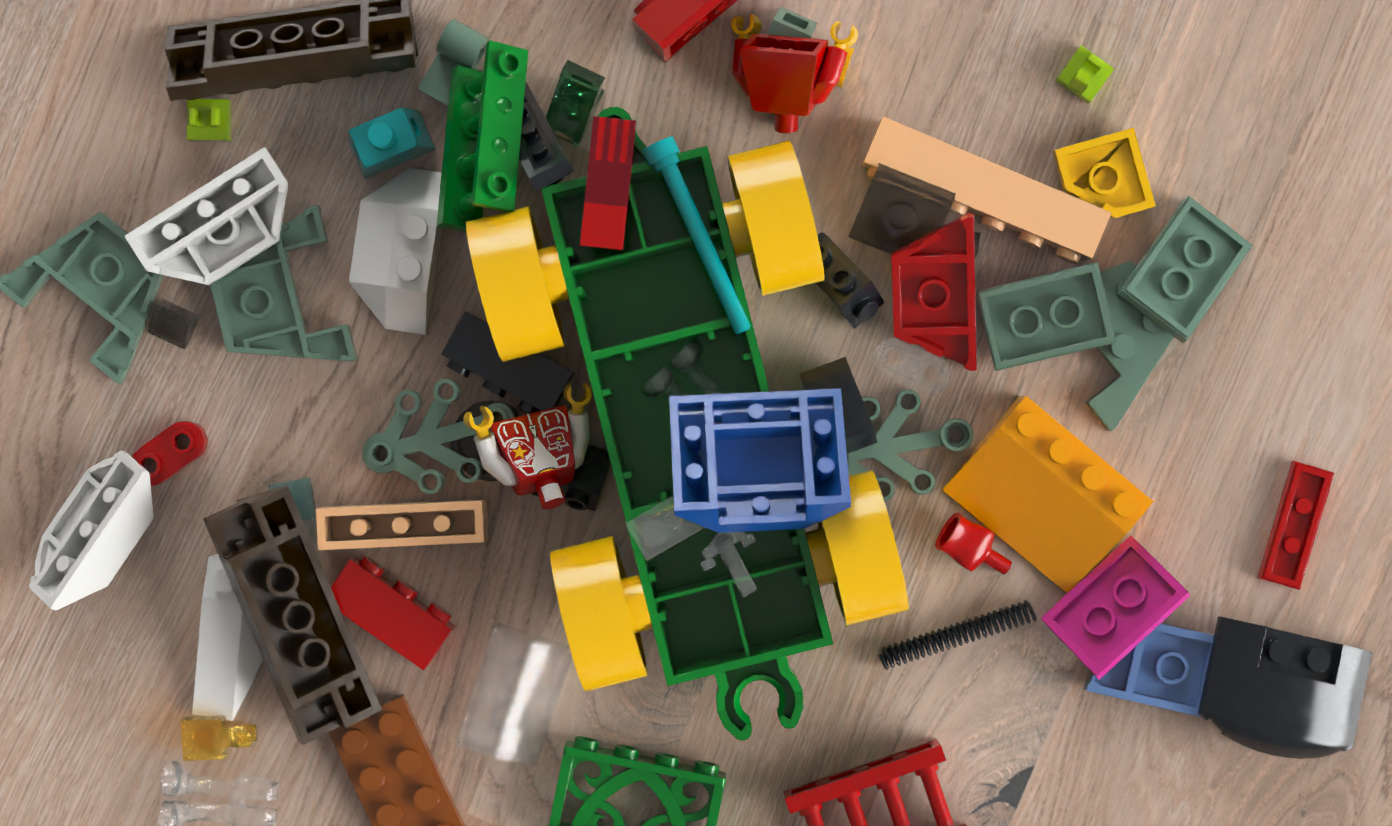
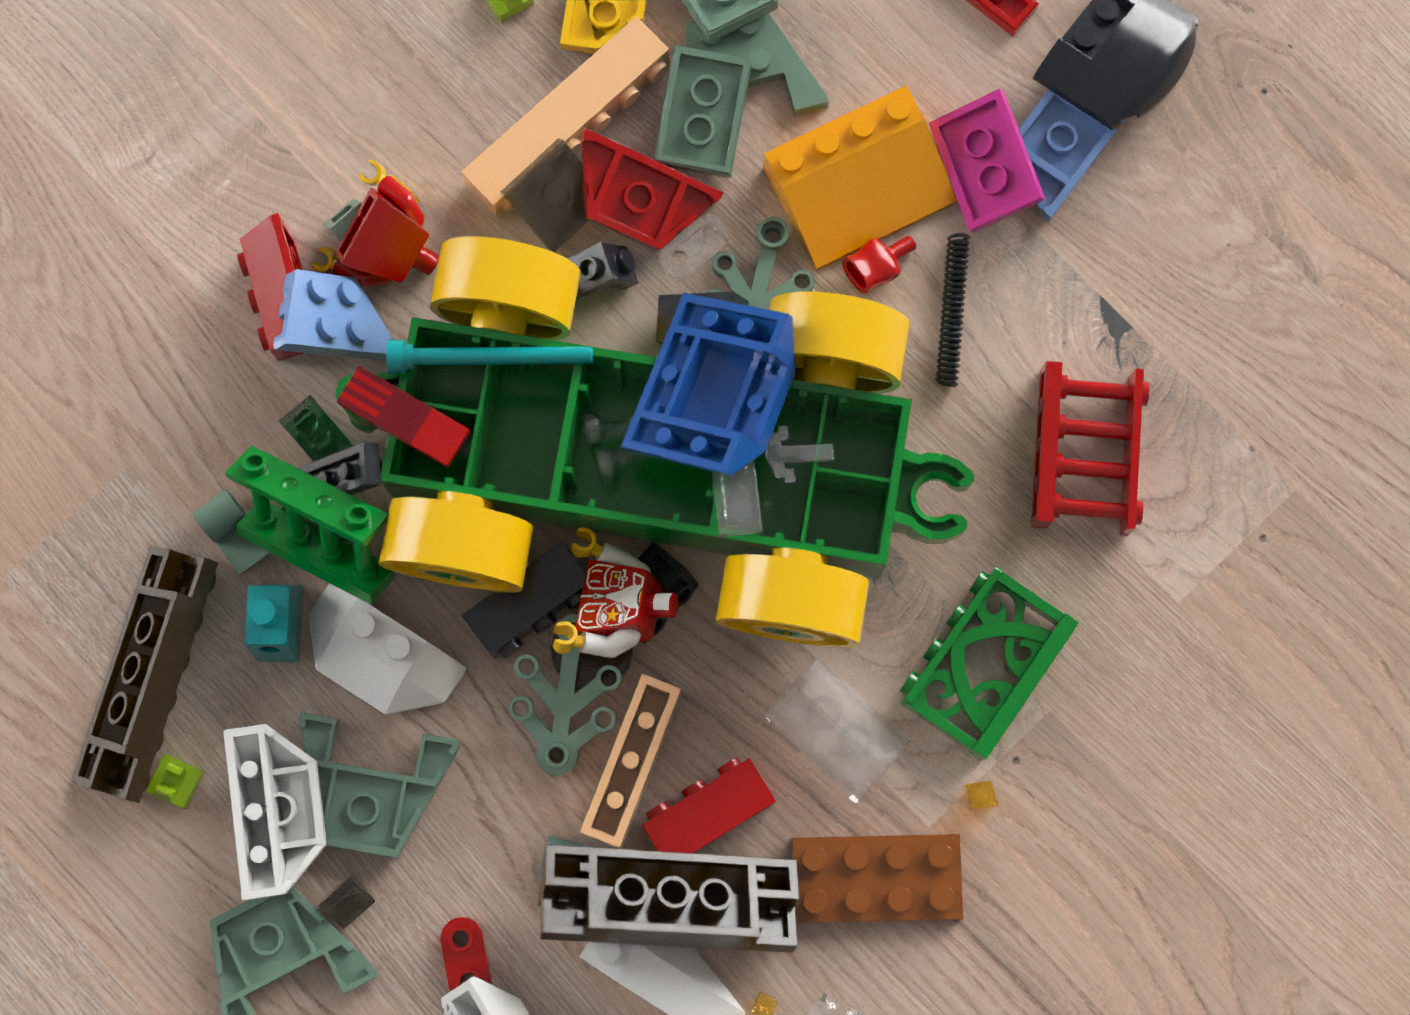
camera: 60 degrees left, 10 degrees down
(683, 64) = (329, 317): none -> medium blue wing

